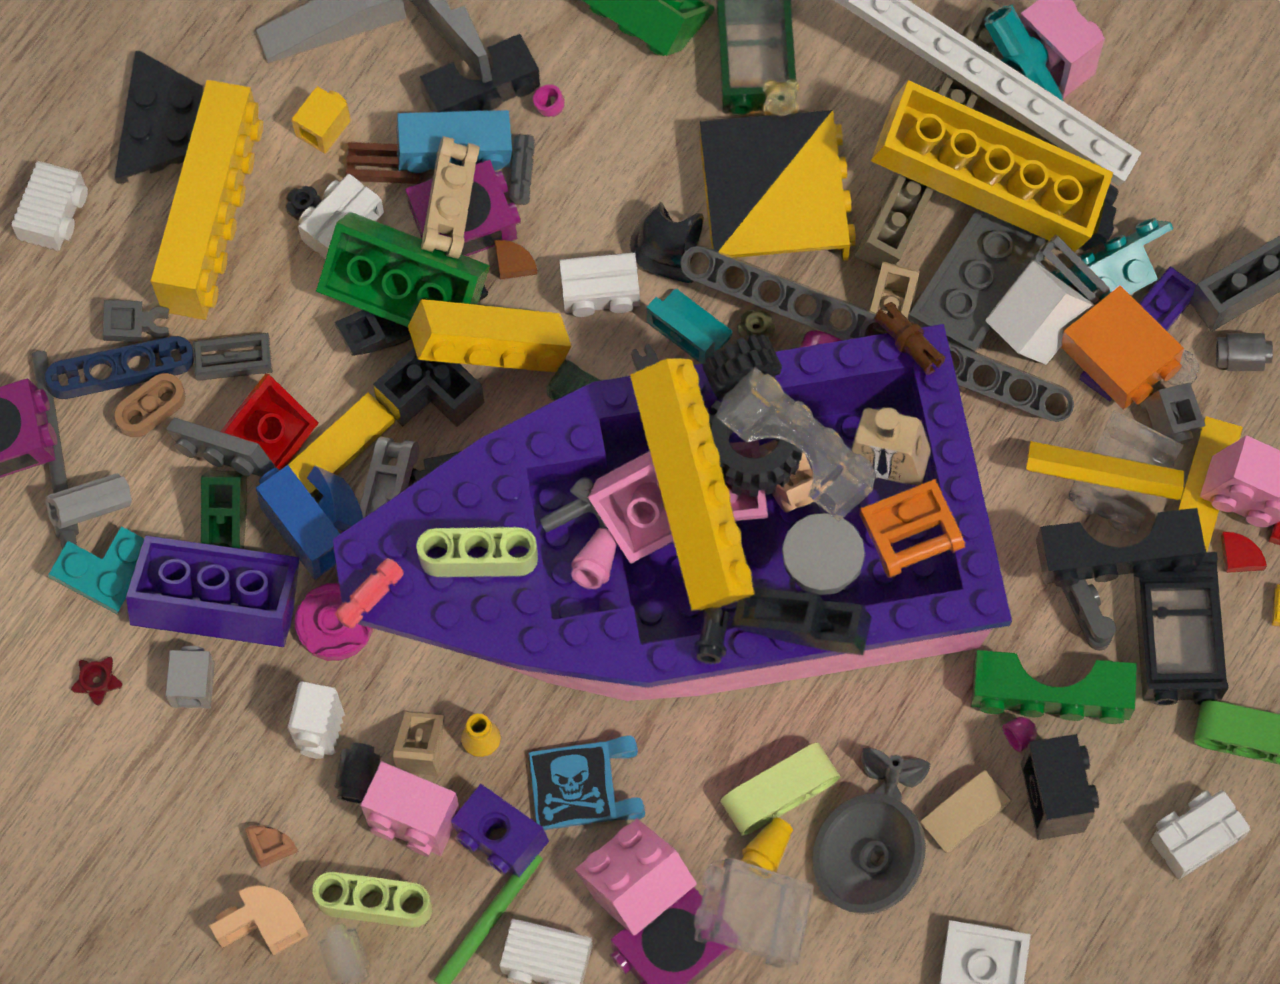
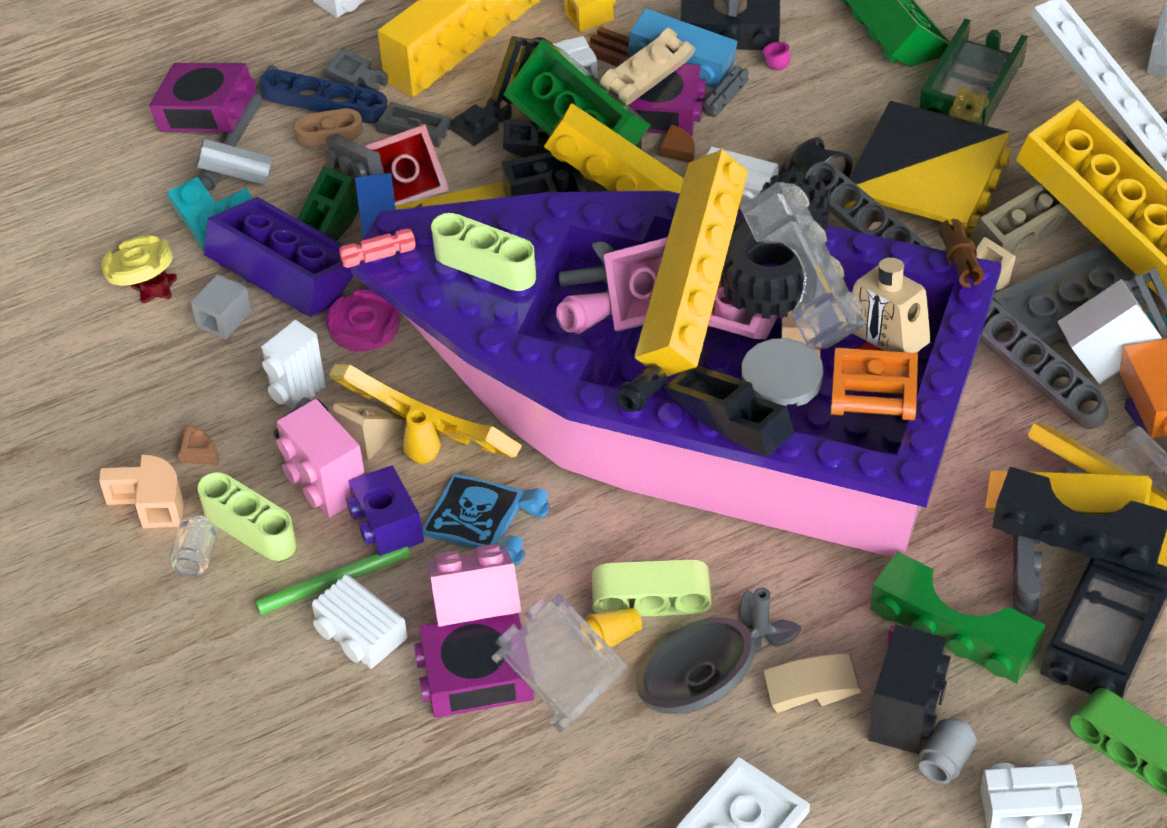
camera: 30 degrees right, 20 degrees down
(66, 665) = (136, 260): none -> light yellow tile
(297, 324) = (479, 123): none -> black plate
(313, 249) = (510, 67): none -> black tile
(467, 706) = (445, 424): none -> yellow tile
(1095, 512) = (1084, 492): none -> yellow tile
(1113, 823) = (947, 750): none -> light grey brick

